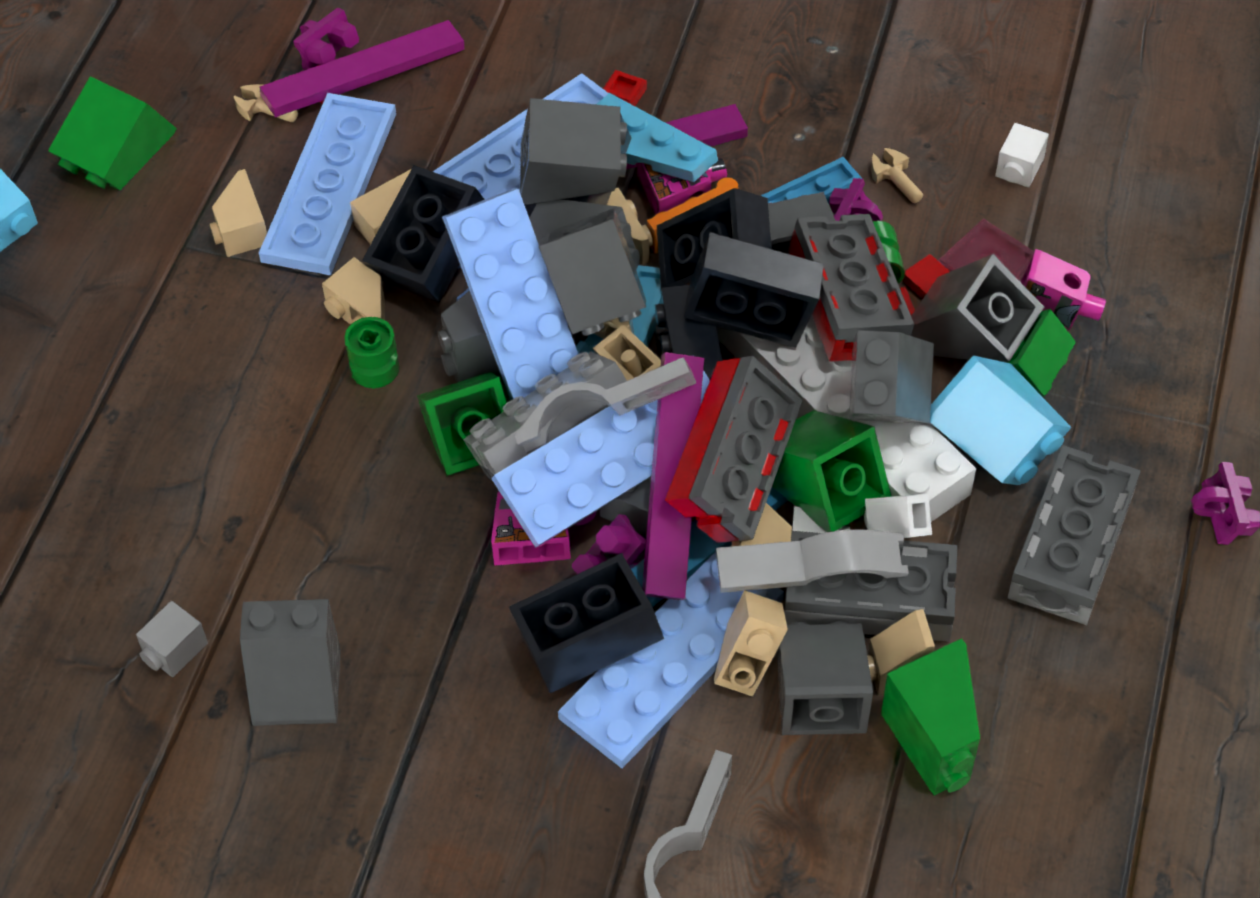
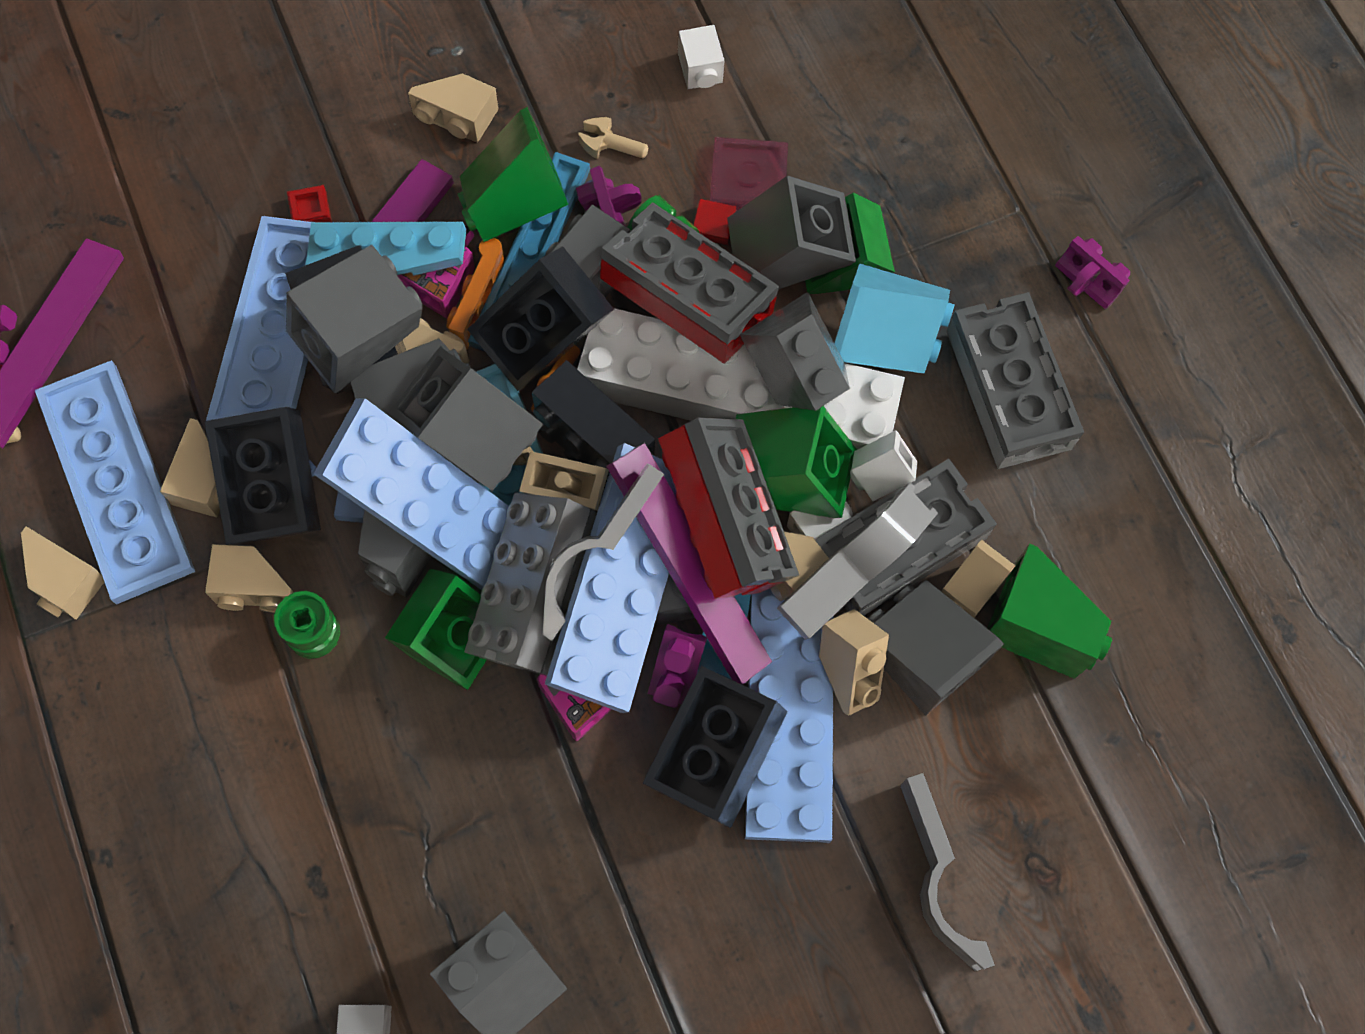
camera: 45 degrees left, 15 degrees up
(753, 290) = (625, 344): black brick -> none
(784, 148) = (510, 181): none -> green slope
(794, 81) = (456, 104): none -> tan slope
(1061, 288) = (836, 165): dark pink torso -> none

